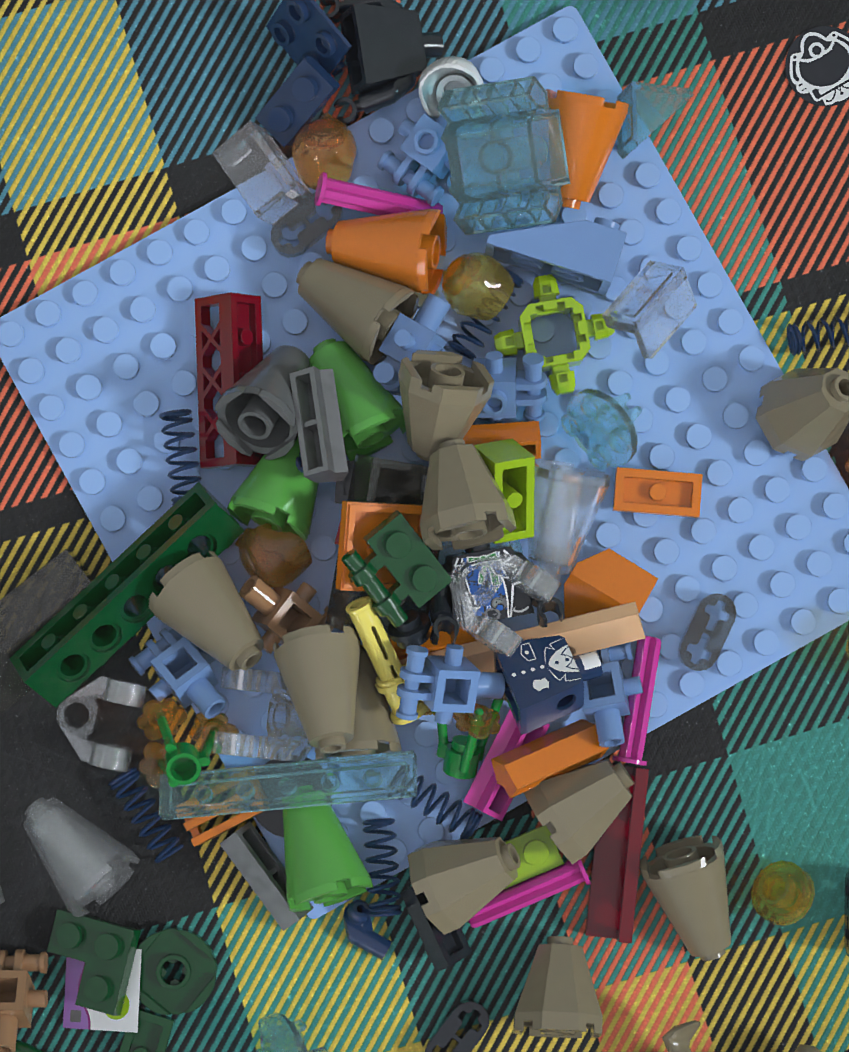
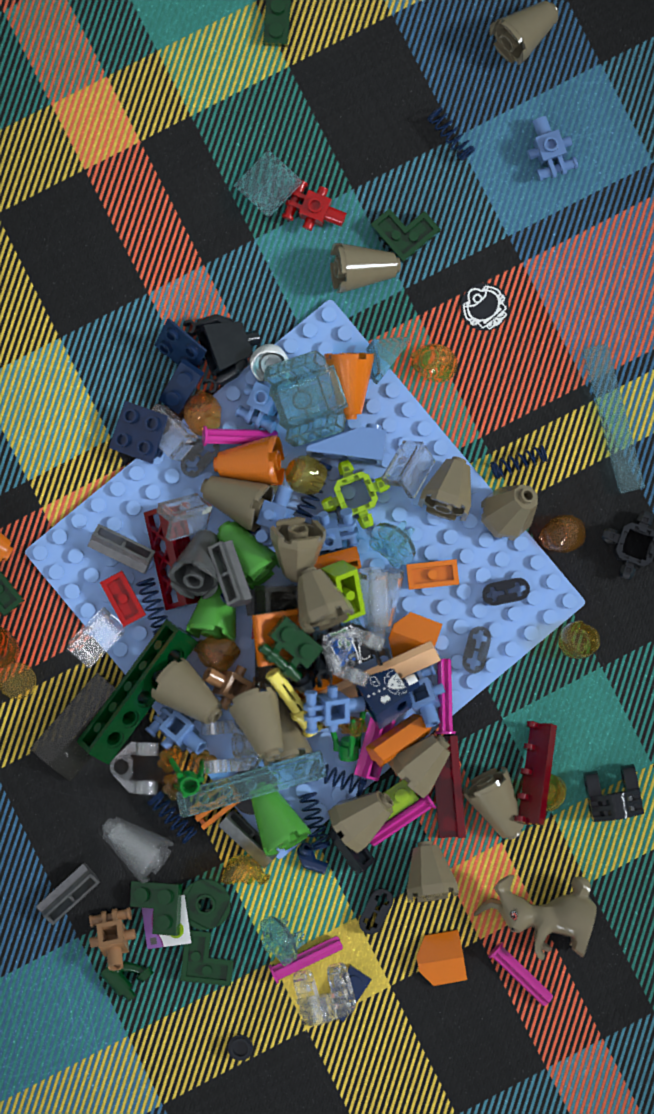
camera: 10 degrees left, 0 degrees up
(76, 492) = (96, 637): none -> clear panel
(133, 435) = (123, 598): none -> red plate
(146, 351) = (121, 548): none -> flat silver piece
(212, 163) = (139, 432): none -> dark blue hinge
(250, 926) = (245, 870): none -> clear yellow hair
(262, 316) = (185, 515): none -> clear panel
(711, 358) = (449, 490): none -> dark tan cone
(726, 142) = (434, 362): none -> clear yellow hair
(769, 859) = (536, 773): none -> dark red hinge
(774, 554) = (504, 585): none -> black beam

